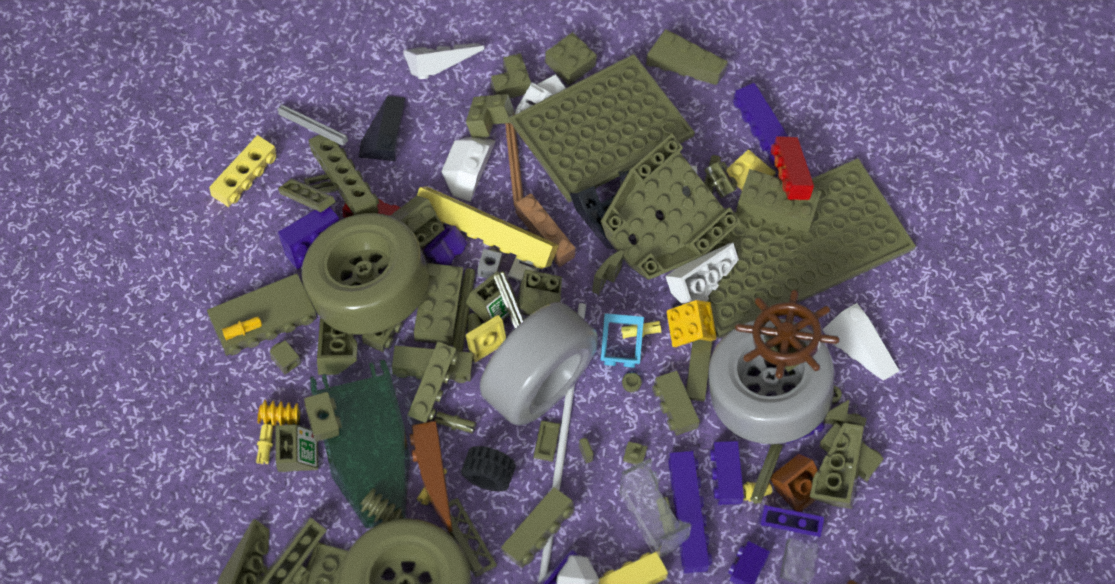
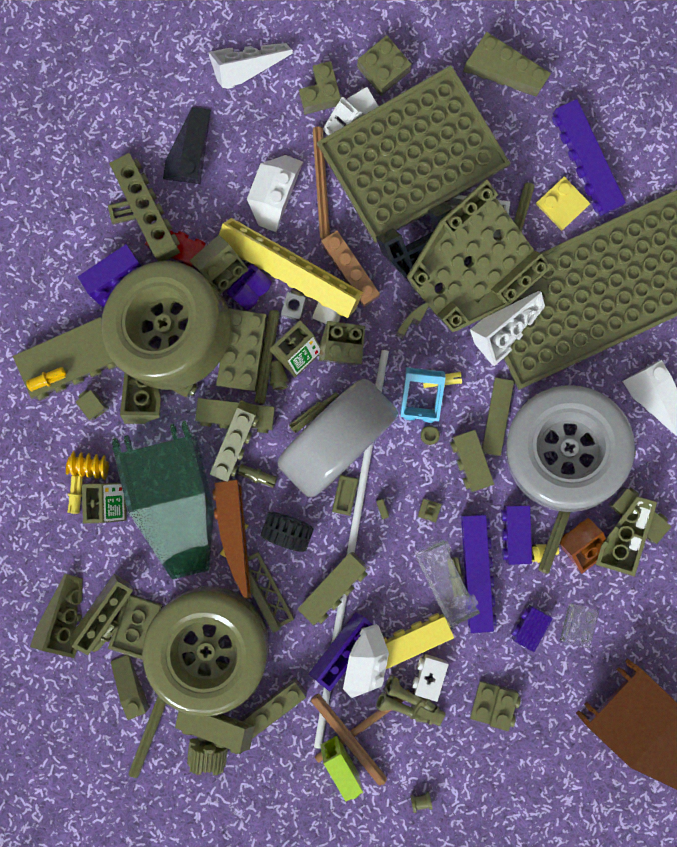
camera: 10 degrees right, 25 degrees up
(244, 162) = (45, 186): light yellow brick -> none
(306, 195) = (107, 230): olive tile -> none
(312, 125) = (113, 145): light grey axle -> none
(322, 428) = (119, 497): olive brick -> none
(379, 507) = (183, 567): olive piece -> none
(486, 112) = (294, 131): olive brick -> none
(486, 338) = (288, 392): light yellow plate -> none
(508, 298) = (314, 359): axle -> none
(691, 323) = (493, 377): yellow bracket -> none
(720, 179) = (533, 214): olive hips -> none
(765, 199) = (592, 242): olive brick -> none
(782, 342) = (591, 425): reddish brown brick -> none
(790, 520) = (575, 587): dark purple brick -> none
(792, 168) = (611, 210): red brick -> none
(840, 416) = (645, 482): olive slope -> none

